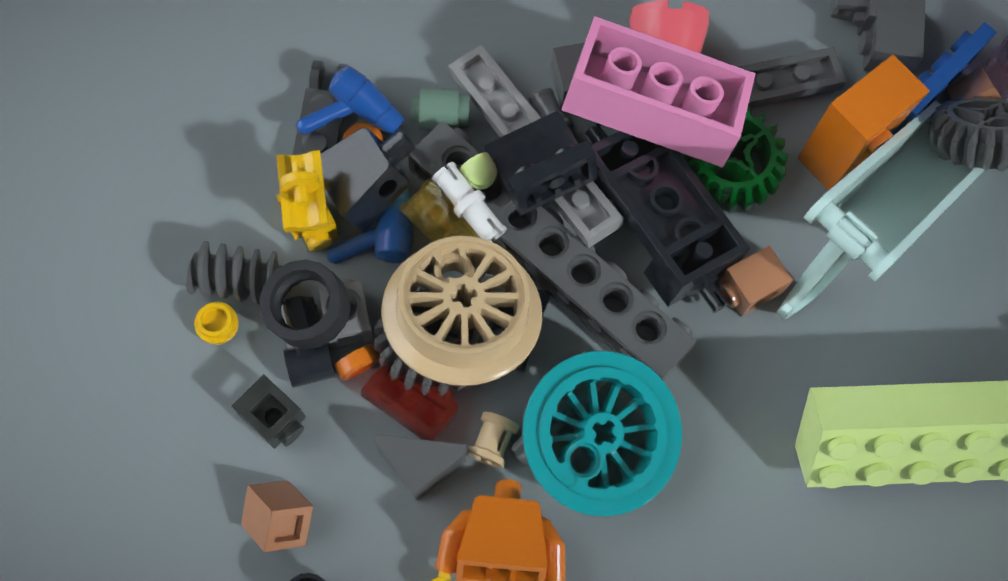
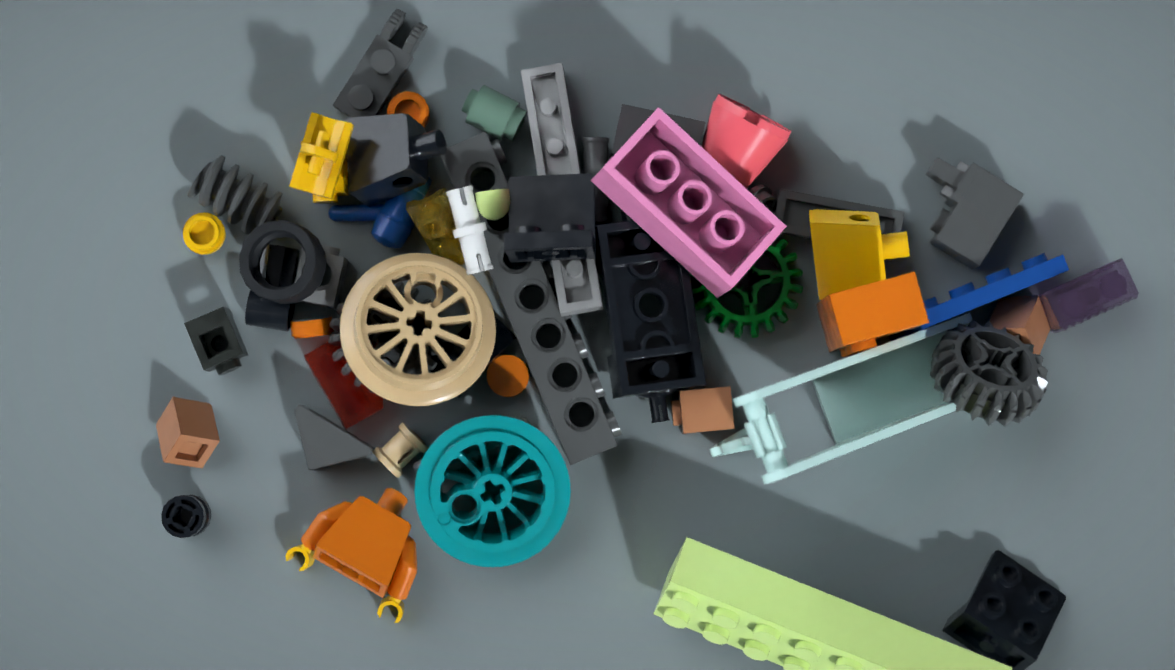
camera: 35 degrees right, 15 degrees up
(357, 96) = (418, 69): blue piece -> none
(560, 331) = (508, 376): none -> orange tile
(807, 86) = (851, 249): none -> yellow torso

